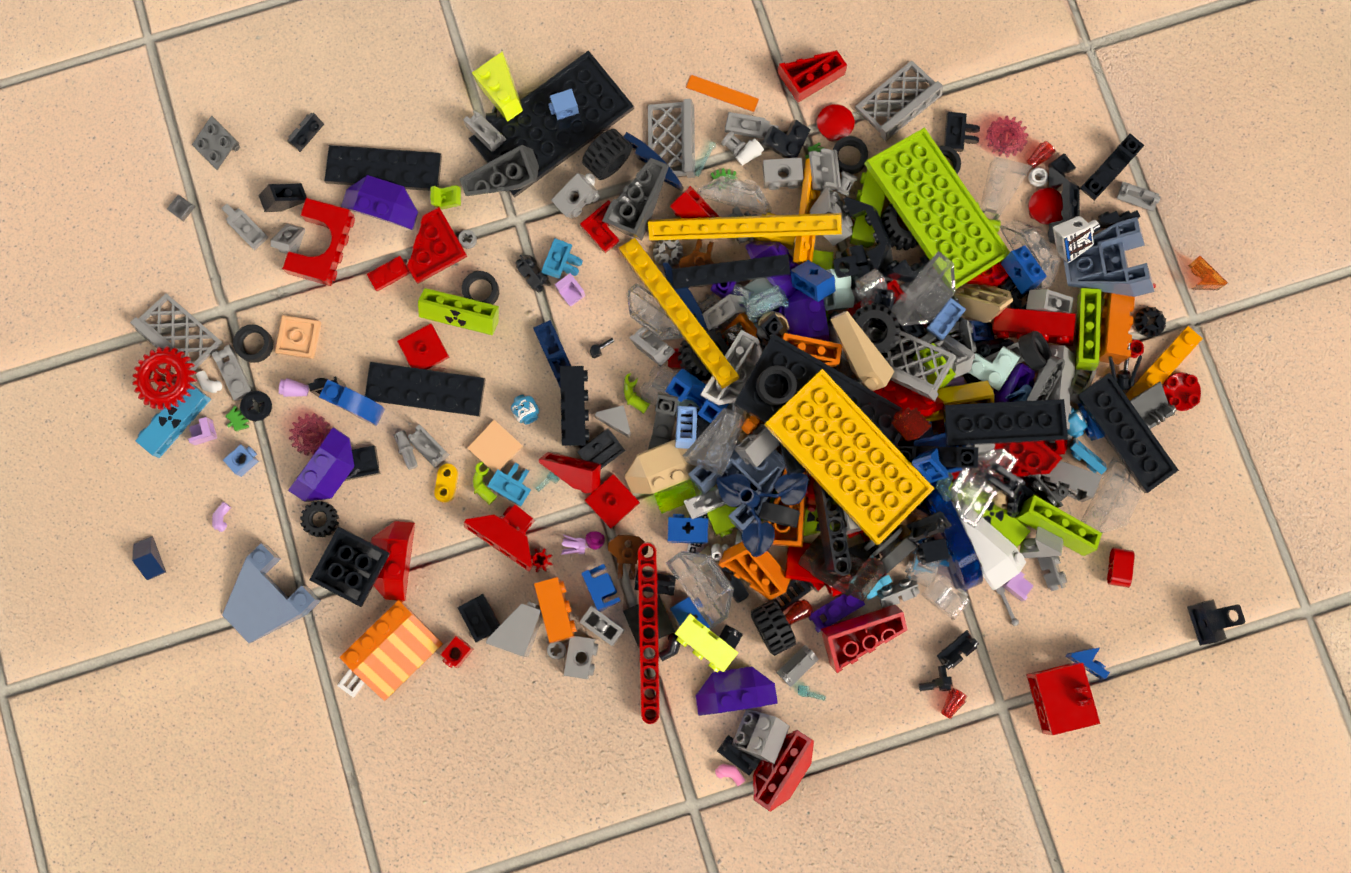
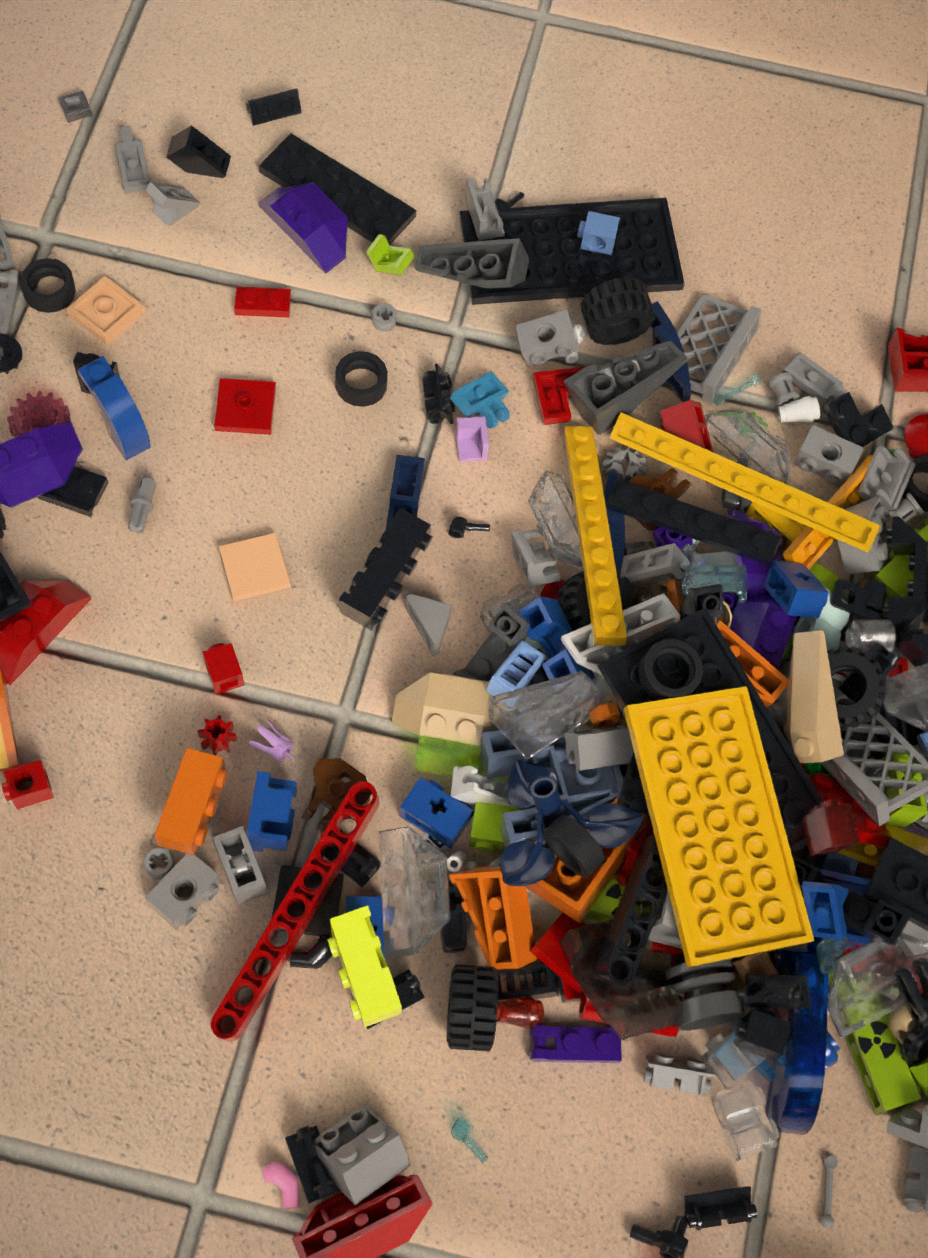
camera: 20 degrees right, 15 degrees down
(215, 143) = (163, 63): dark grey hinge -> none
(292, 388) = (56, 358): lavender cone -> none
(322, 267) = (192, 250): red arch -> none
(425, 389) = (217, 451): black plate -> none
(428, 446) = (171, 516): light grey hinge -> none
(434, 247) = (337, 303): red plate -> none
(448, 483) = (165, 573): yellow plate -> none
(458, 311) = (317, 384): lime brick -> none
(479, 618) = (87, 760): black plate -> none
(480, 487) = (202, 600): lime piece -> none
(498, 85) = (533, 175): neon yellow wedge -> none
(502, 537) = (186, 669): red wedge -> none
(509, 487) = (238, 622): dark azure hinge -> none
(518, 630) = (125, 801): light grey slope -> none
(525, 409) = (322, 542): dark azure head -> none
(550, 477) = (302, 642): clear light blue hand -> none
(575, 472) = (334, 651): red slope -> none
(595, 540) = (304, 752): magenta plate -> none
(601, 449) = (386, 647): black plate -> none
(612, 501) = (359, 719): red plate -> none
(631, 396) = (468, 606): lime piece -> none
(722, 93) = (804, 332): orange sticker -> none
(735, 691) = (365, 1070): dark purple wedge -> none
(798, 665) = (474, 1088): light grey hinge -> none
(861, 635) = (584, 1096): red wedge -> none
(885, 580) = (643, 1044): medium azure plate -> none
(995, 552) = (853, 1102): white wedge -> none
(1018, 586) = (860, 1170): lavender panel -> none

